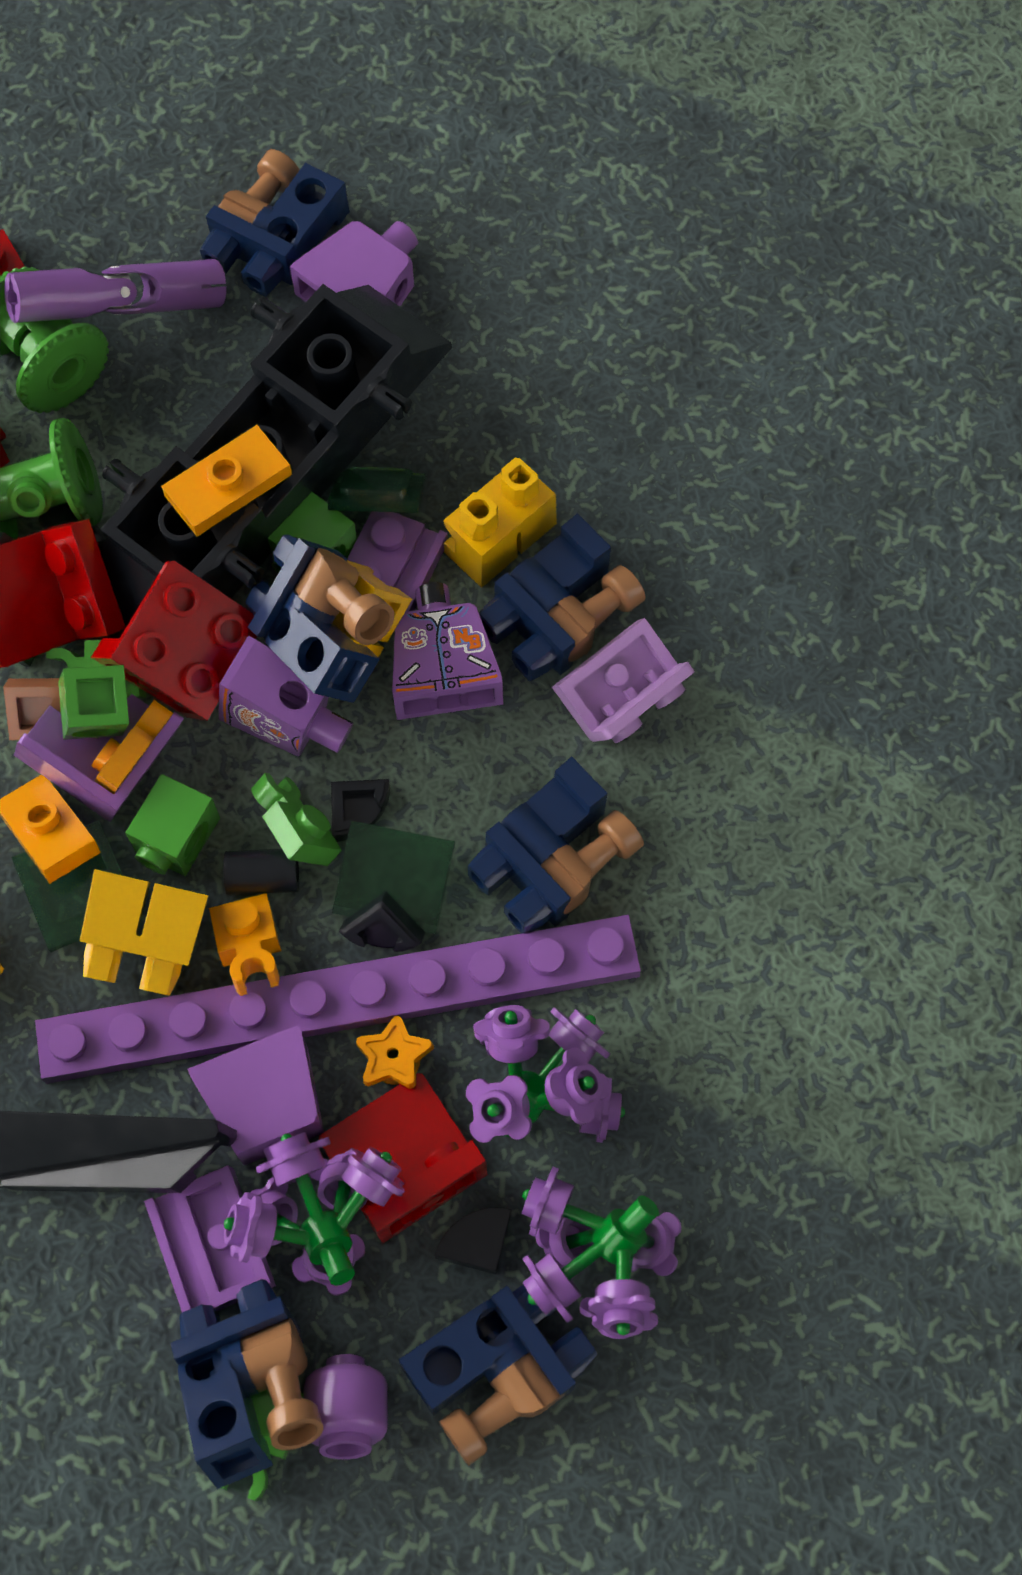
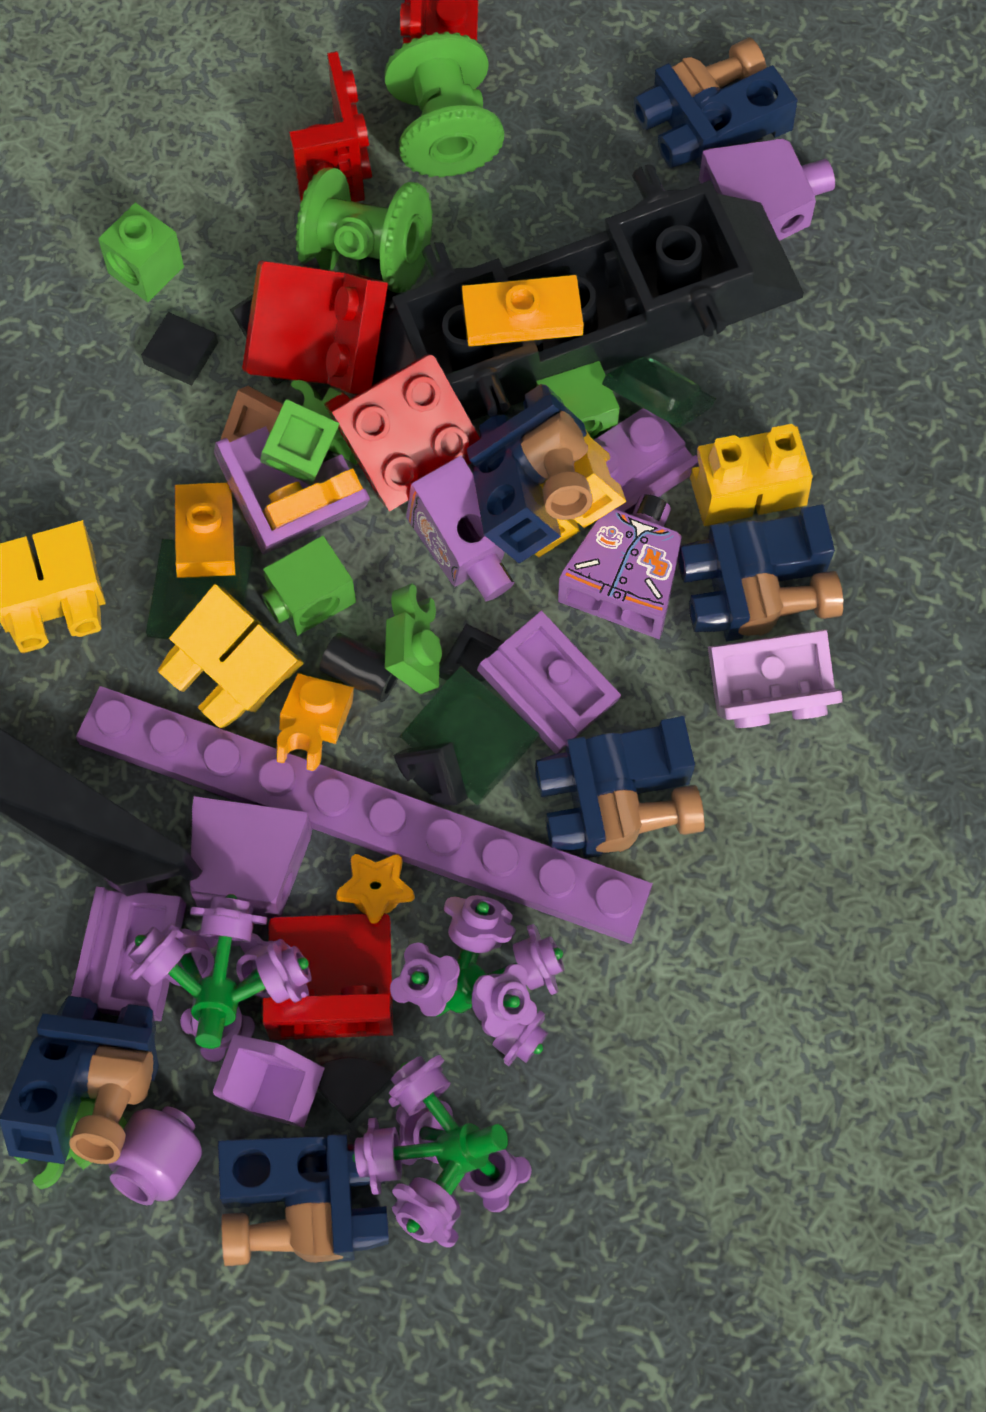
camera: 30 degrees right, 0 degrees up
(79, 294) = (504, 84): medium lavender piece -> none
(407, 1279) = (268, 1080): none -> medium lavender panel
(435, 792) = (548, 682): none -> medium lavender plate

